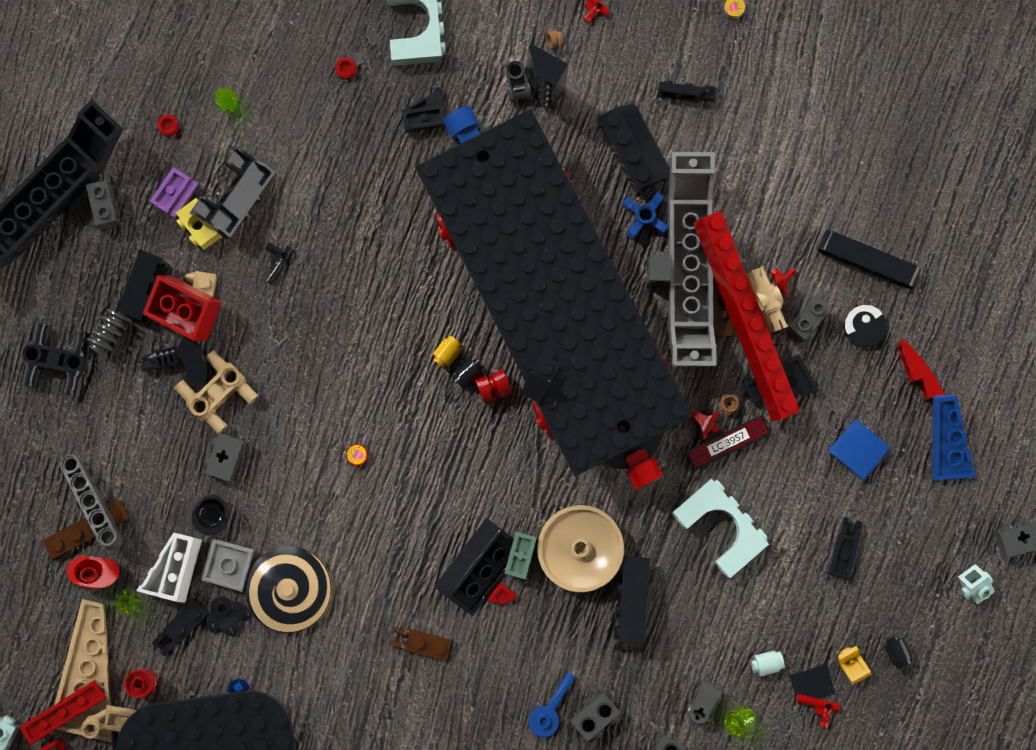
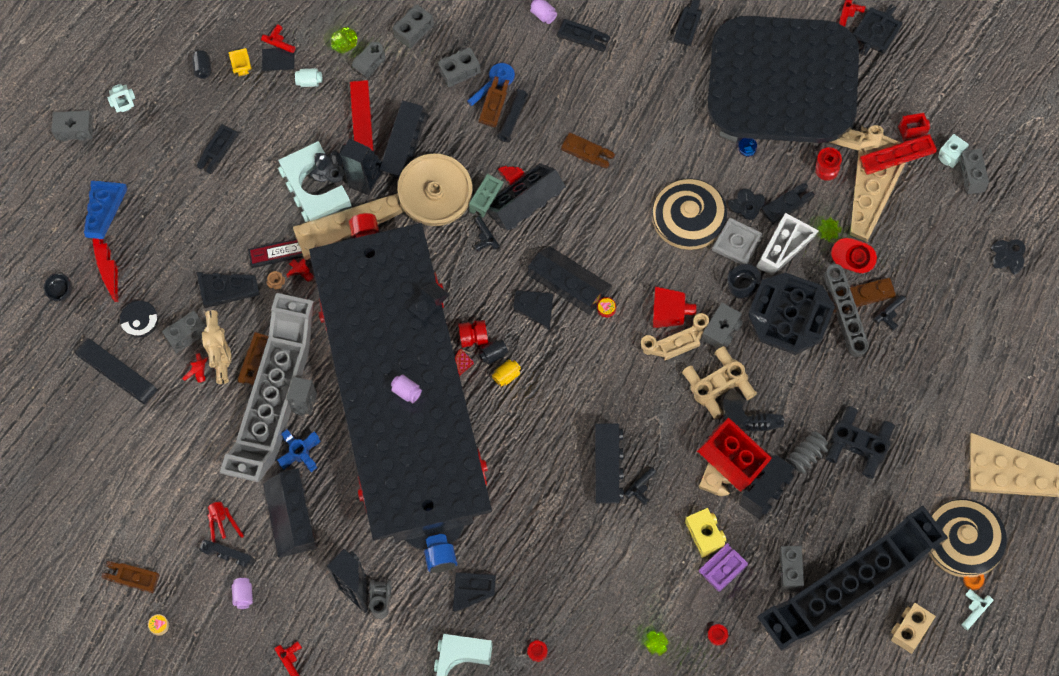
camera: 160 degrees left, 15 degrees down
(46, 518) = (890, 313): none -> black hose
(128, 478) = (793, 295): none -> black piece
(239, 196) = (663, 545): bracket -> none
(269, 429) = (677, 343): none -> tan plate
(285, 466) = (670, 308): none -> red torso
(315, 274) = (607, 463): none -> black wedge
(404, 478) = (568, 279): none -> black slope
(435, 438) = (535, 306): none -> black wing
(499, 355) = (463, 362): none -> red tile
(511, 509) = (485, 236): none -> black hose
(516, 668) = (513, 115): none -> black pin
(537, 270) = (406, 388): none -> lavender brick
(542, 677) = (493, 104): none -> reddish brown hinge
(554, 39) = (334, 632): medium nougat plate -> none
(659, 55) = (242, 593): none -> lavender brick
(669, 554) = (360, 166): none -> black wedge
(682, 476) = (336, 226): none -> tan wing
(691, 626) = (361, 113): none -> red slope
(711, 130) = (217, 514): none -> red plant
(711, 551) = (326, 165): none -> black plate
(746, 316) = (238, 337): red brick -> none
(777, 47) = (132, 577): none -> reddish brown hinge
(859, 449) = (179, 221): blue slope -> none
(966, 338) = (58, 287): none -> black hair

